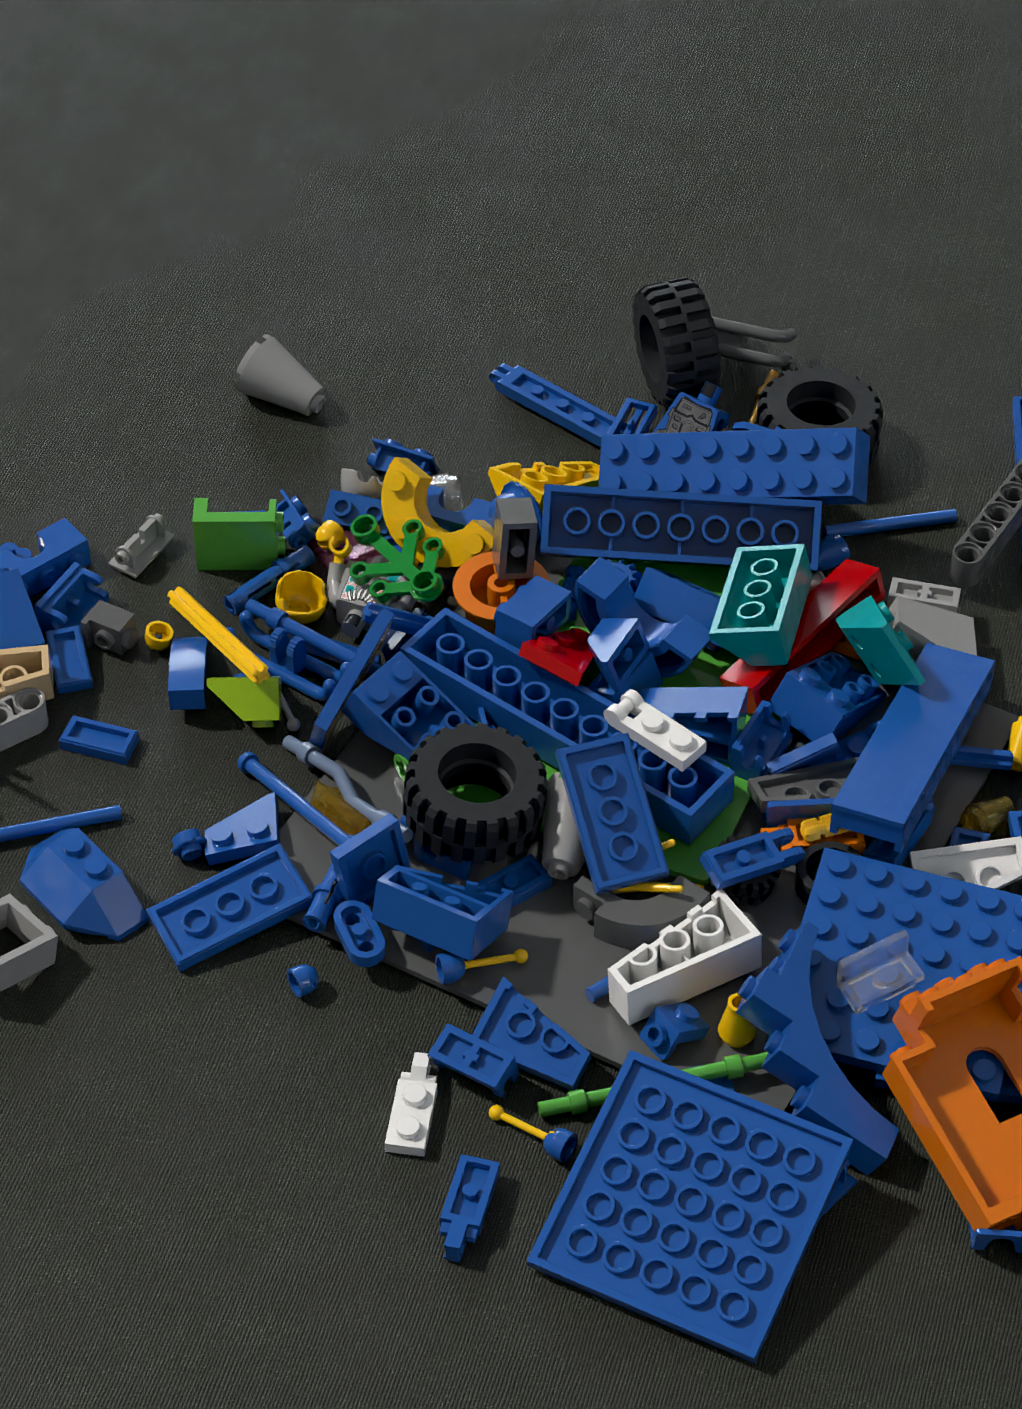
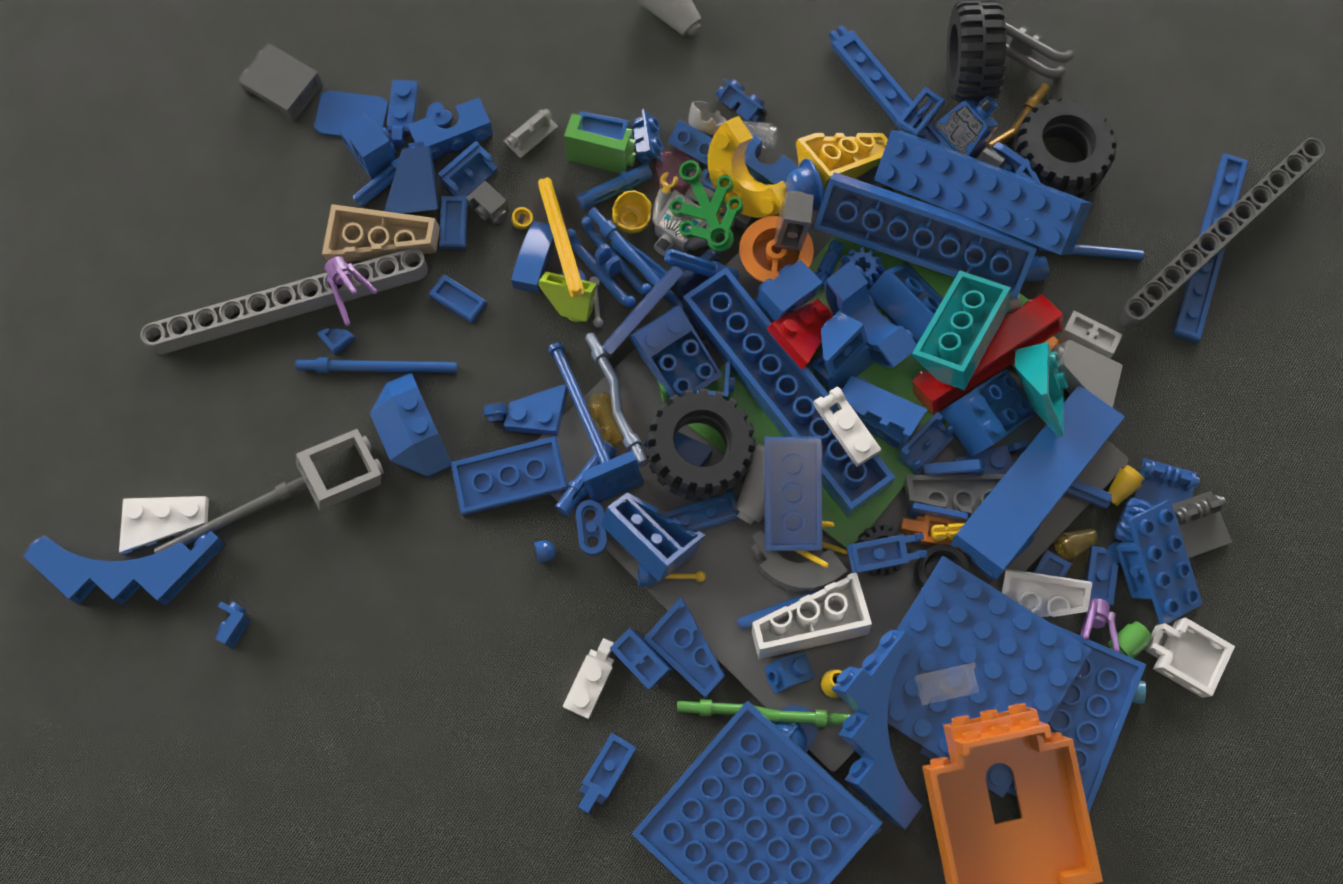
camera: 15 degrees right, 25 degrees up
(327, 531) = (667, 161): yellow hinge -> none
(557, 1143) = (681, 739): blue hinge -> none

